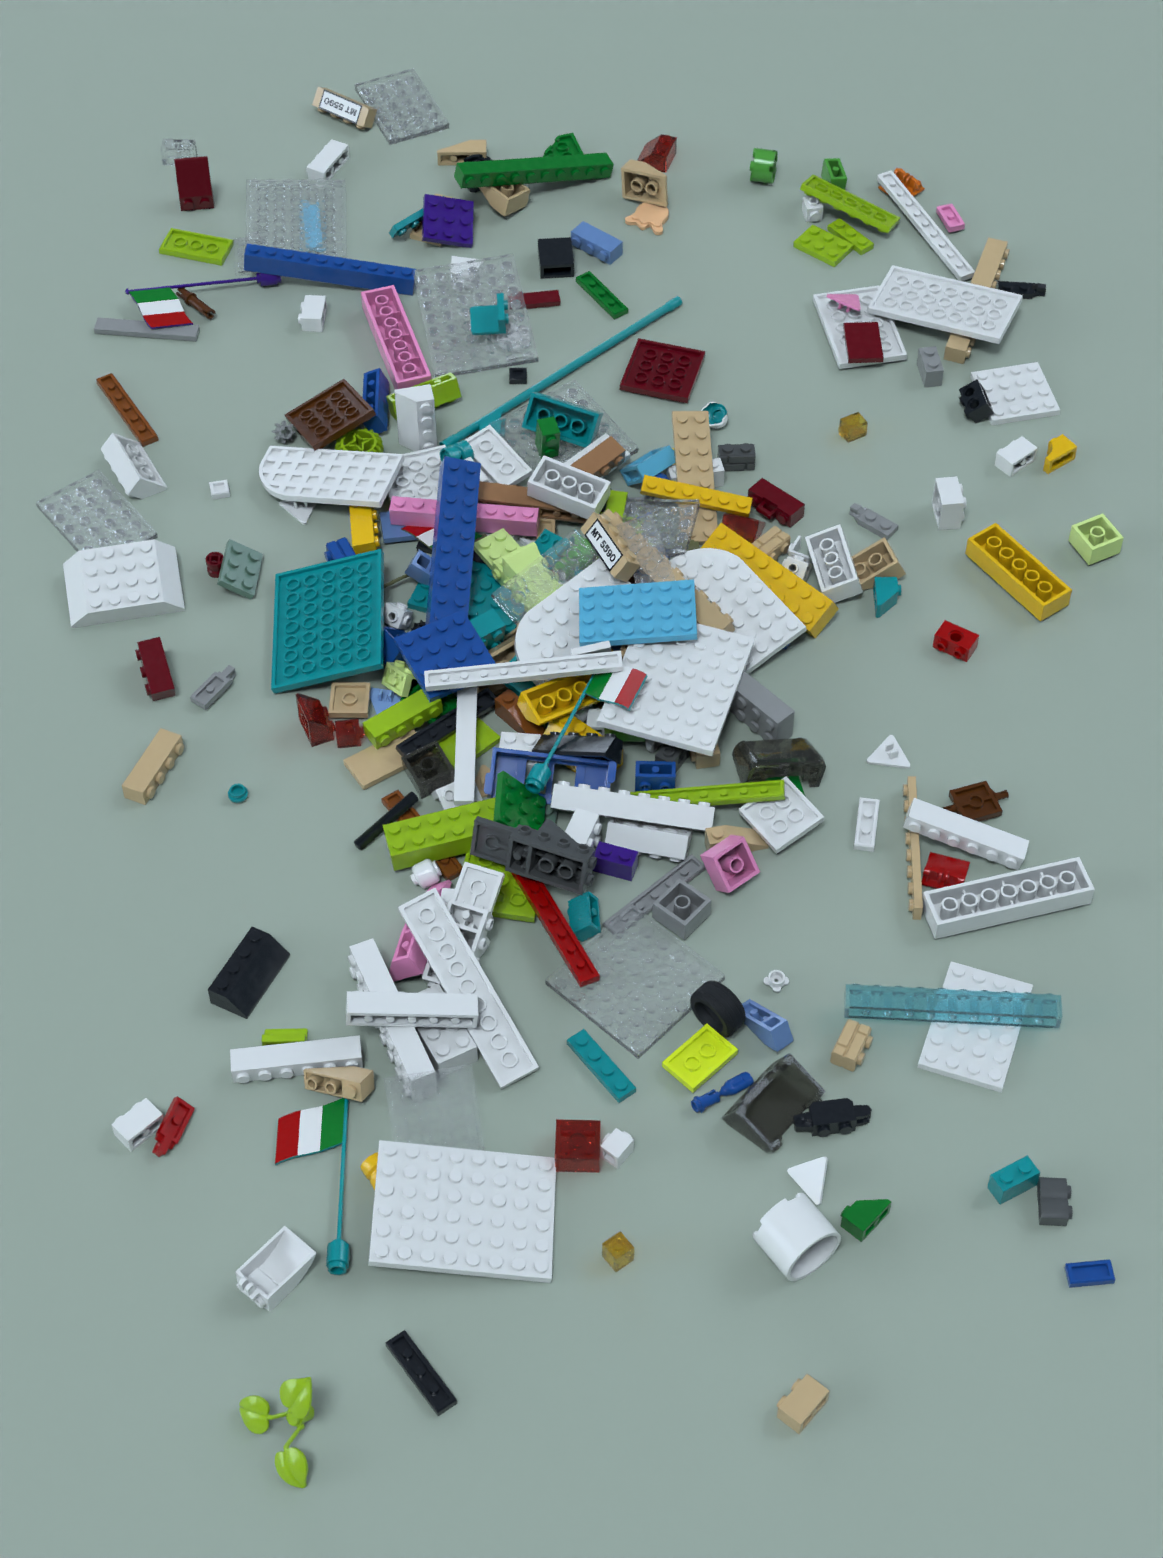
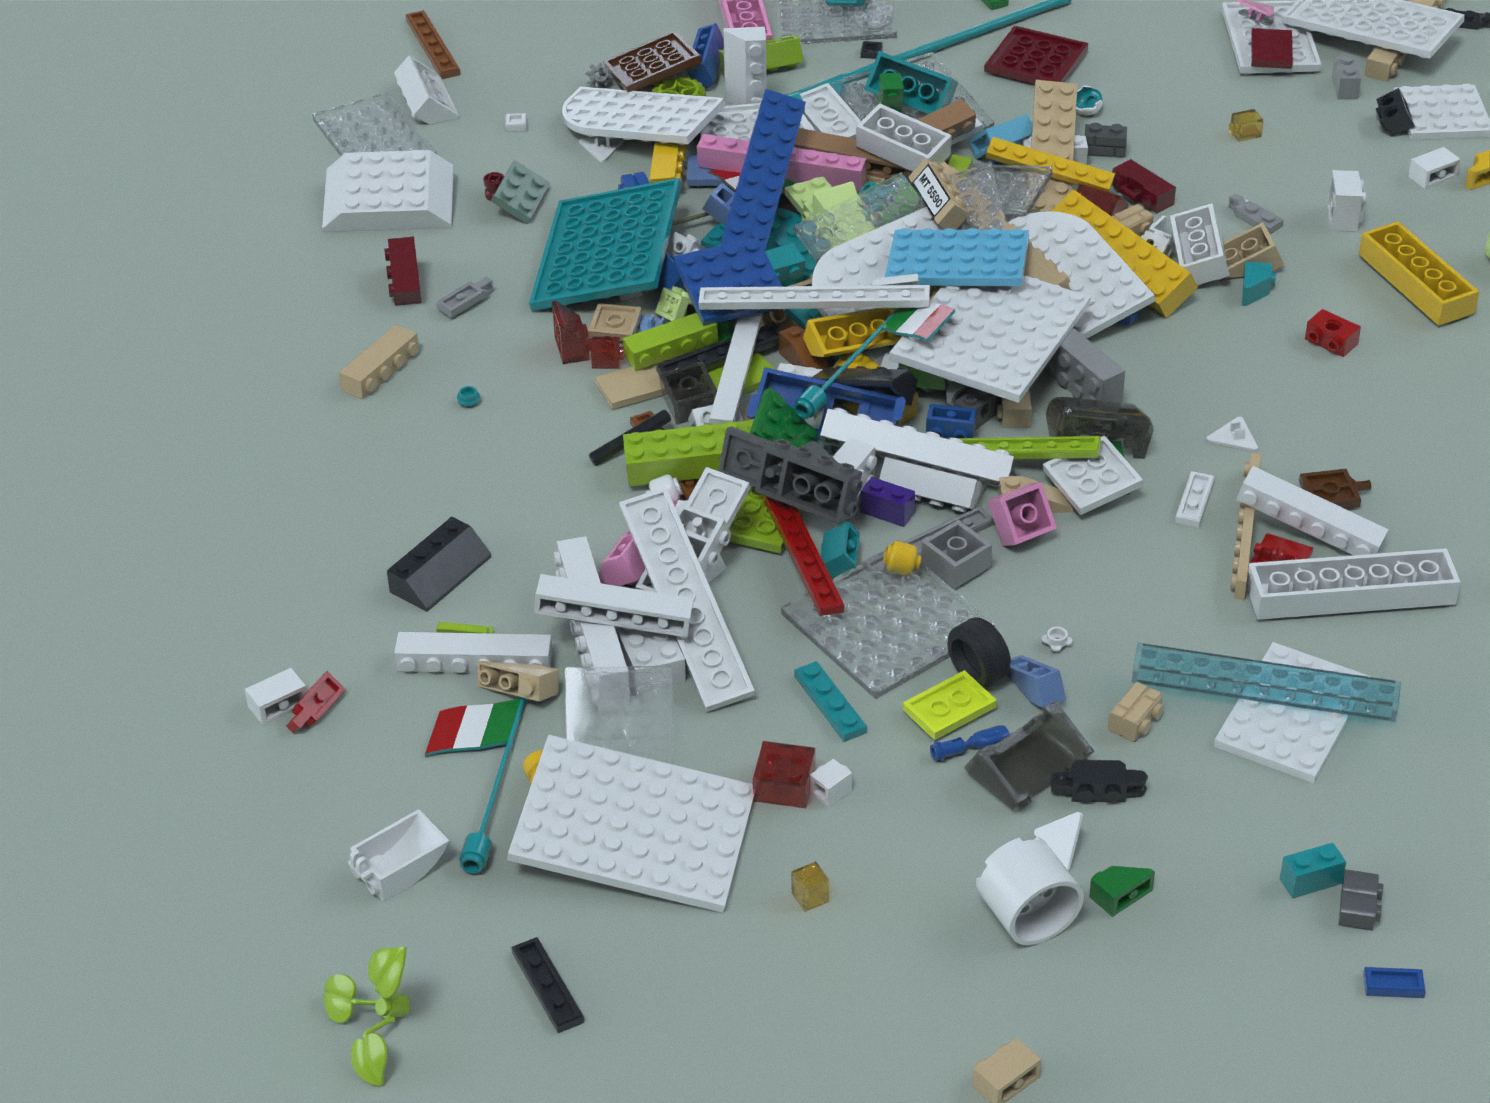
camera: 10 degrees right, 10 degrees down
(638, 921) = (901, 558): none -> yellow head

